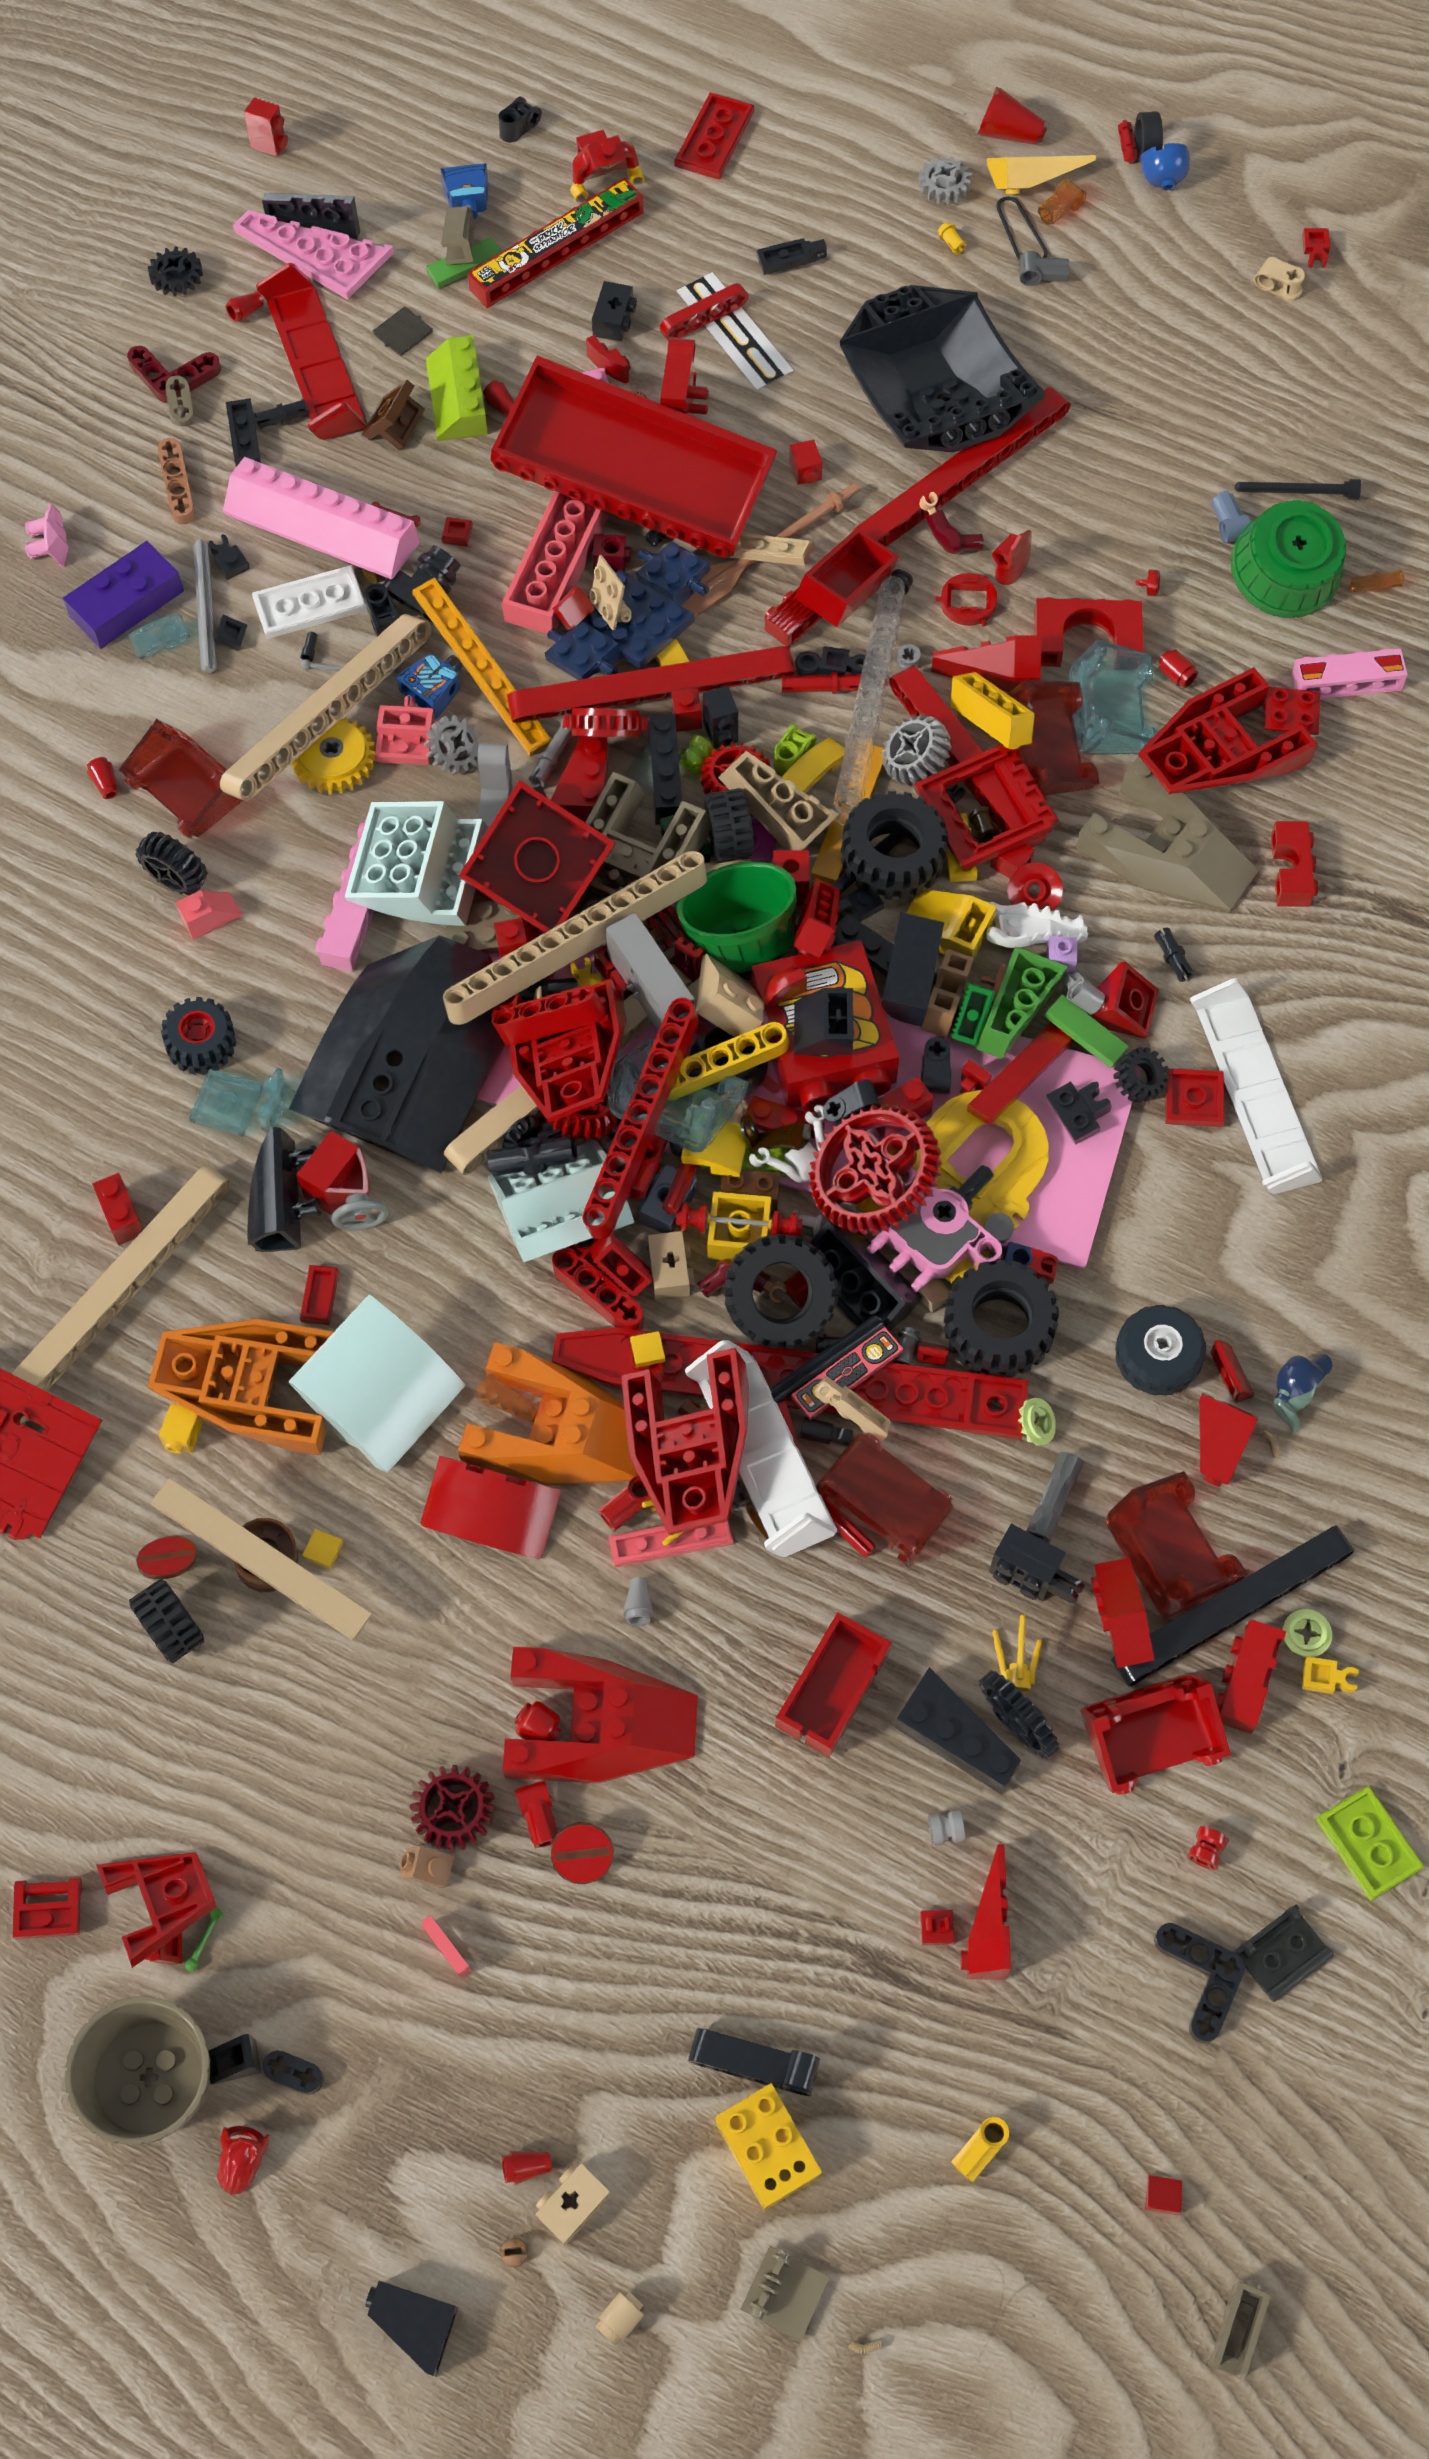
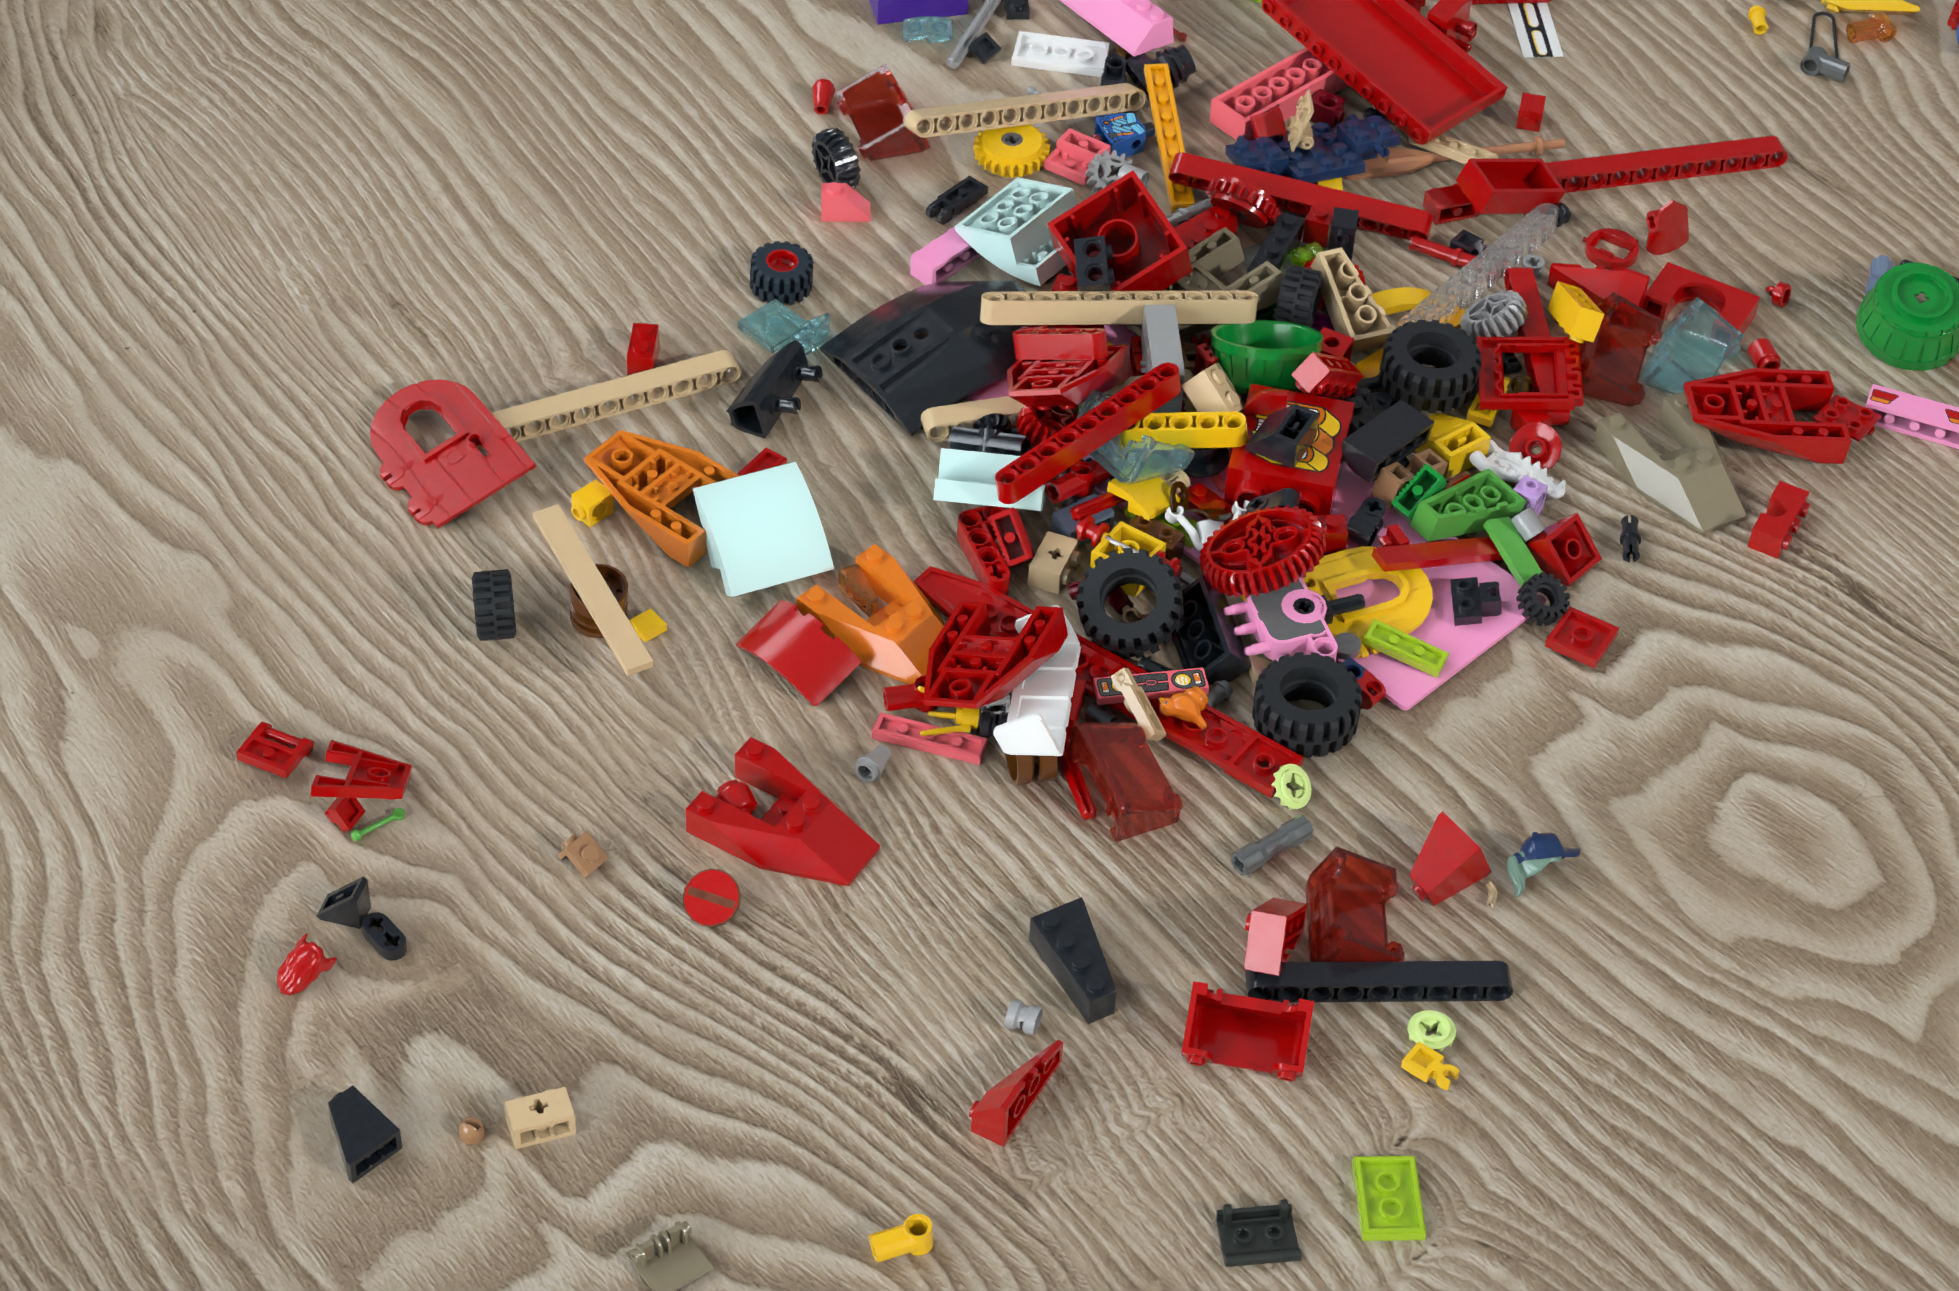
camera: 25 degrees right, 20 degrees down
(119, 2048) = (265, 848): dark tan piece -> none
(166, 1557) = (526, 576): red piece -> none
(308, 650) = (1039, 82): black piece -> none
(315, 846) = (956, 199): none -> black hinge
(341, 1183) = (825, 400): red piece -> none
(438, 1785) = (647, 819): dark red gear -> none
(445, 1947) = (560, 909): coral tile -> none
(456, 531) = (1210, 54): red tile -> none
(525, 2165) = (519, 1076): red cone -> none
(526, 910) = (1090, 266): none -> black brick
(536, 1807) = (696, 854): red piece -> none
(620, 2317) = (524, 1208): tan brick -> none
(647, 1349) = (997, 602): yellow tile -> none
(755, 2062) = (773, 1111): black beam -> none
(767, 2147) = (723, 1154): yellow piece -> none
(792, 746) = (1391, 278): lime piece -> none
(807, 664) = (1443, 236): black tile -> none
(826, 1359) = (1137, 667): black axle -> none
(833, 1684) = (994, 878): red piece -> none
(895, 1383) = (1186, 706): none -> orange animal
(931, 346) = (1682, 87): black wedge -> none
(932, 1353) = (1234, 709): red slope -> none
(937, 1927) = (969, 1082): red tile -> none
(944, 533) = (1619, 198): dark red arm -> none
(1018, 1672) = (1156, 945): yellow plant -> none
(1019, 1714) = (1134, 955): black gear -> none
(1033, 1567) = (1217, 871): black brick -> none
(1050, 1200) = (1405, 648): none -> lime tile
(1160, 1350) = (1432, 781): black wheel -> none
(1208, 1848) = (1241, 1130): red wheel -> none
(1216, 1978) = (1185, 1224): black beam -> none
(1231, 1371) = (1489, 828): red slope -> none
(1249, 1675) = (1359, 1028): red wedge -> none
(1256, 1088) = (1643, 650): white piece -> none

